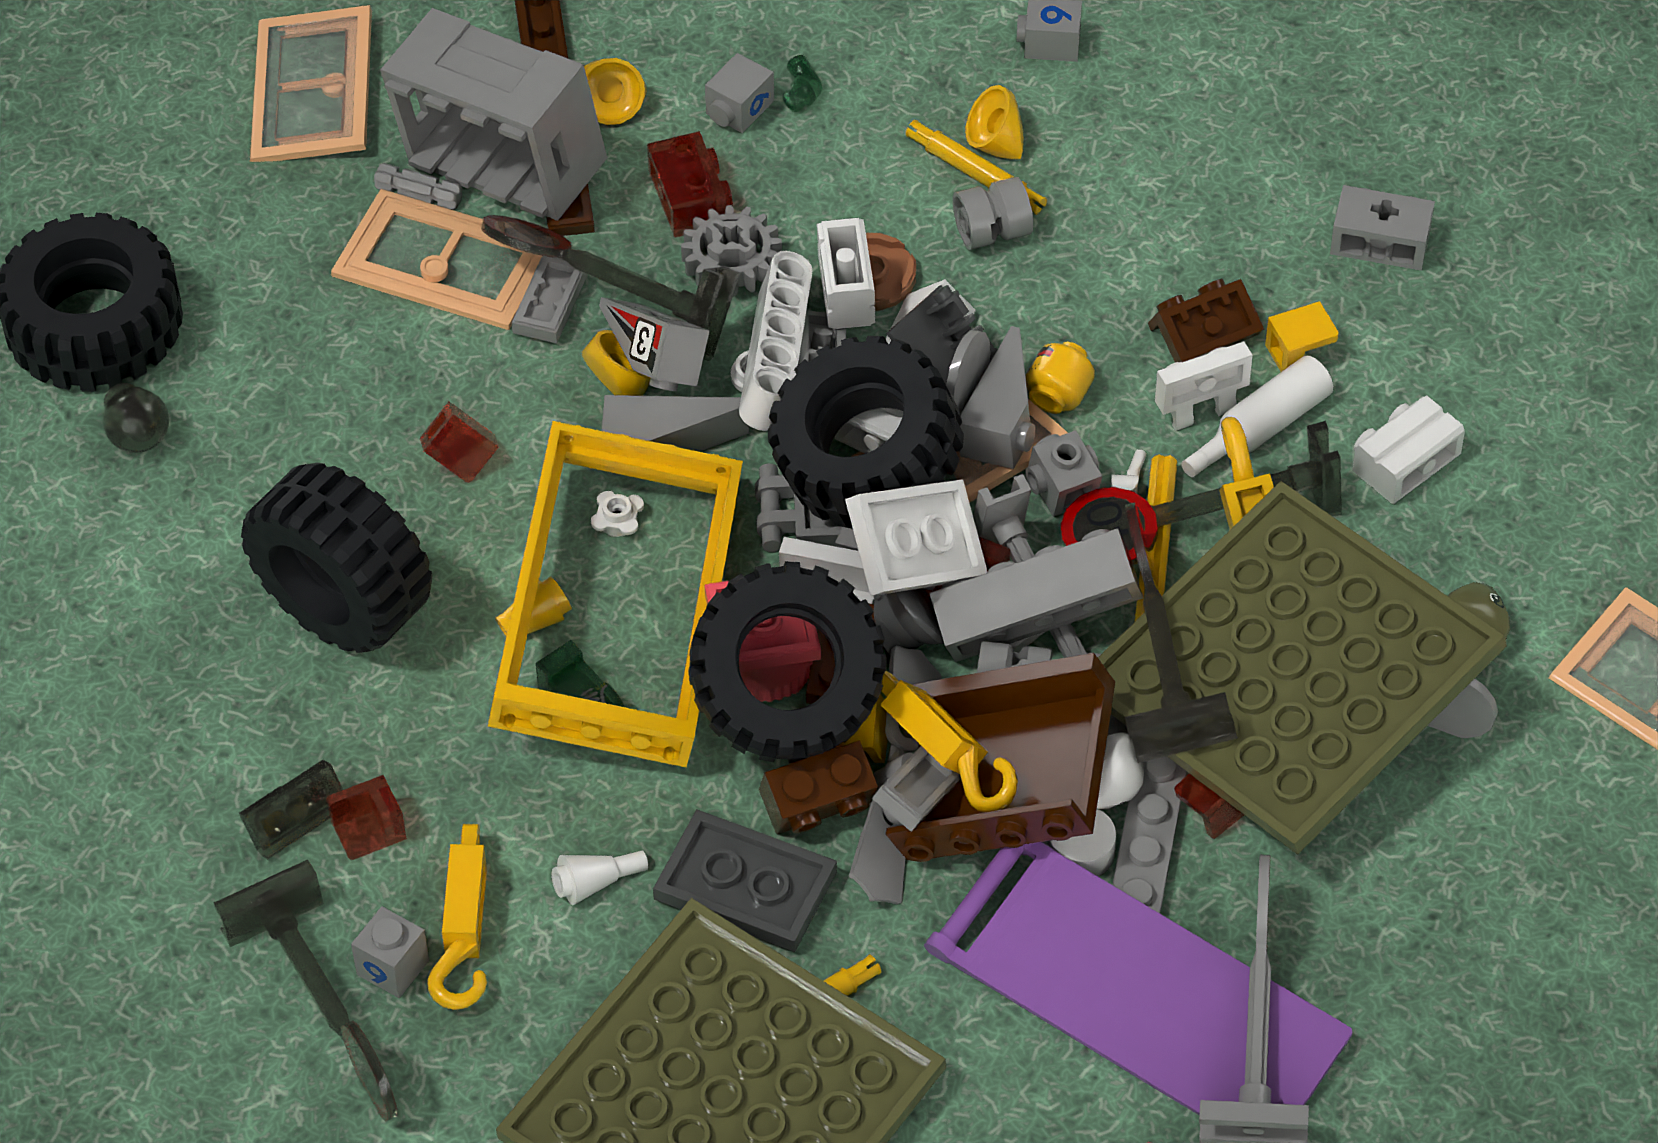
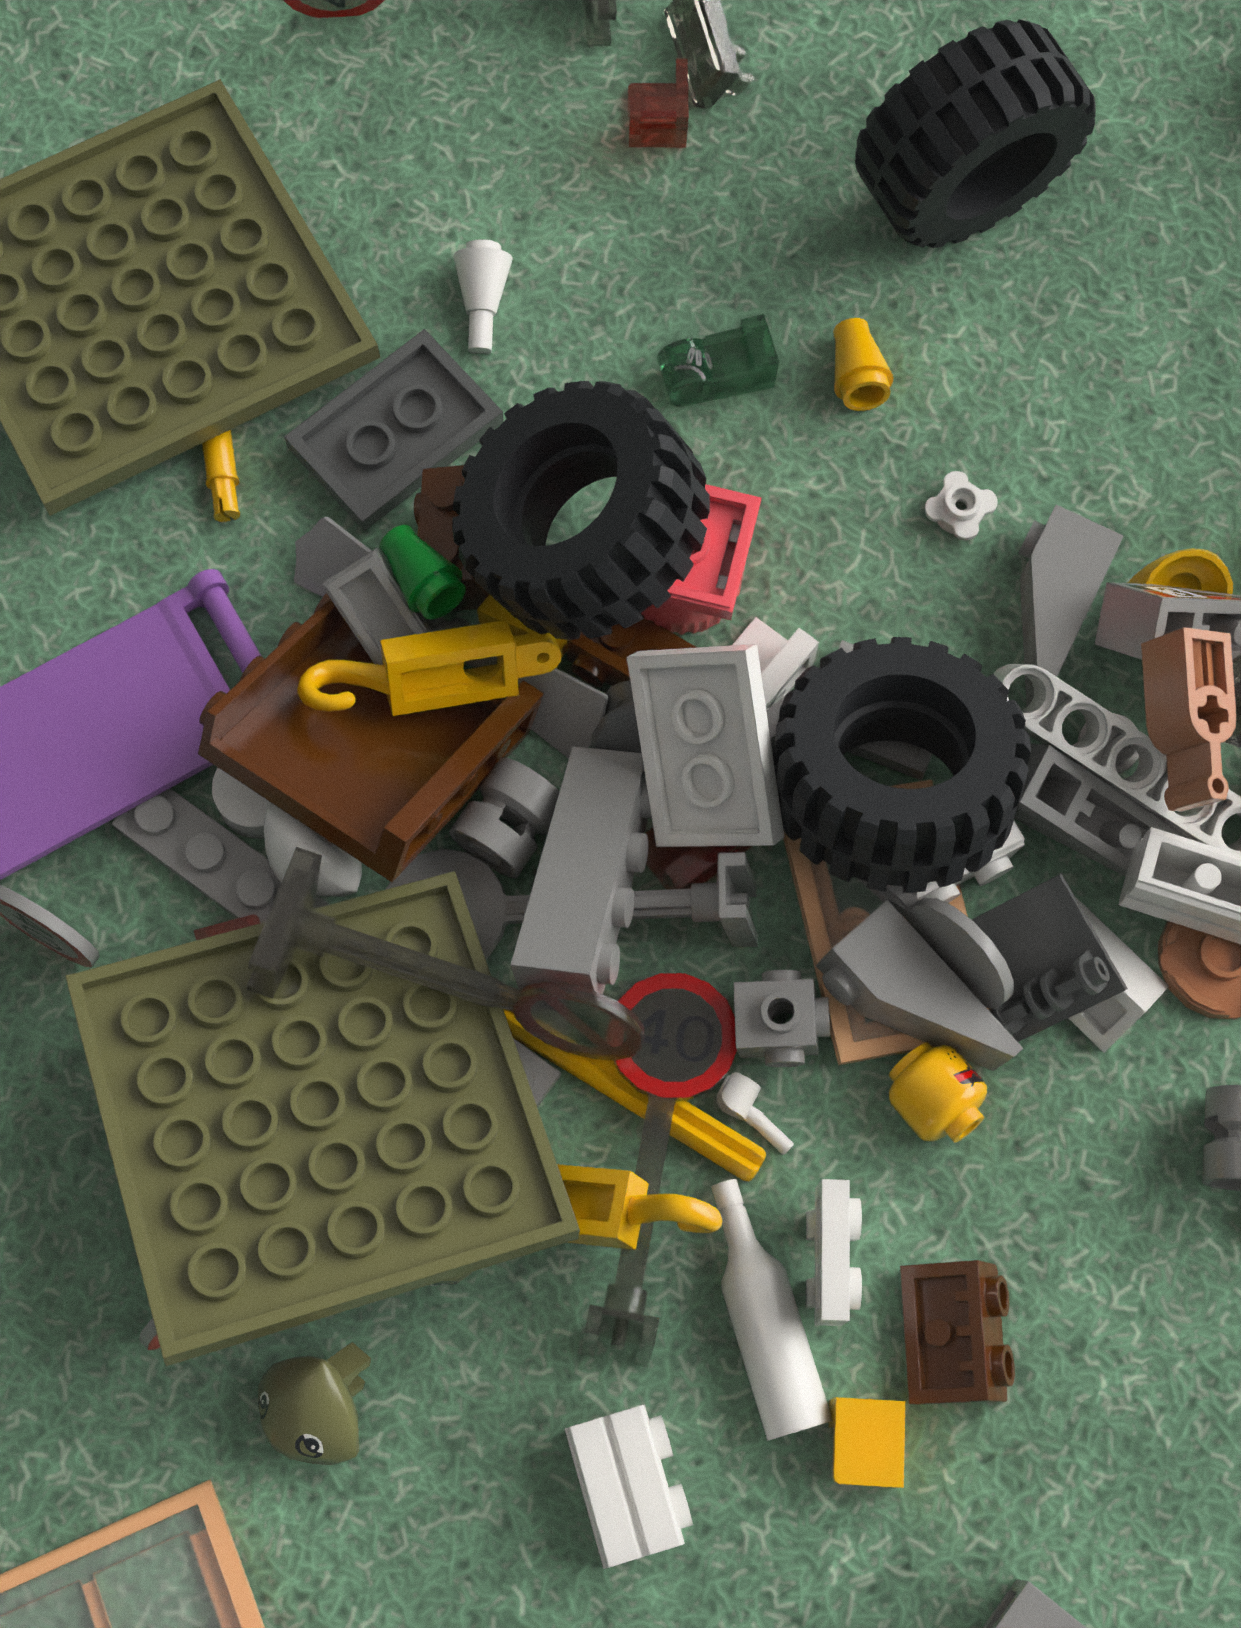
camera: 110 degrees right, 20 degrees up
(390, 952) = (476, 60): light grey brick -> none
(459, 442) = (1137, 378): clear red panel -> none
(462, 919) = (494, 146): yellow piece -> none
(584, 720) = (705, 233): yellow door -> none
(742, 287) = (1190, 711): none -> nougat piece
(877, 759) = (424, 575): none -> green cone

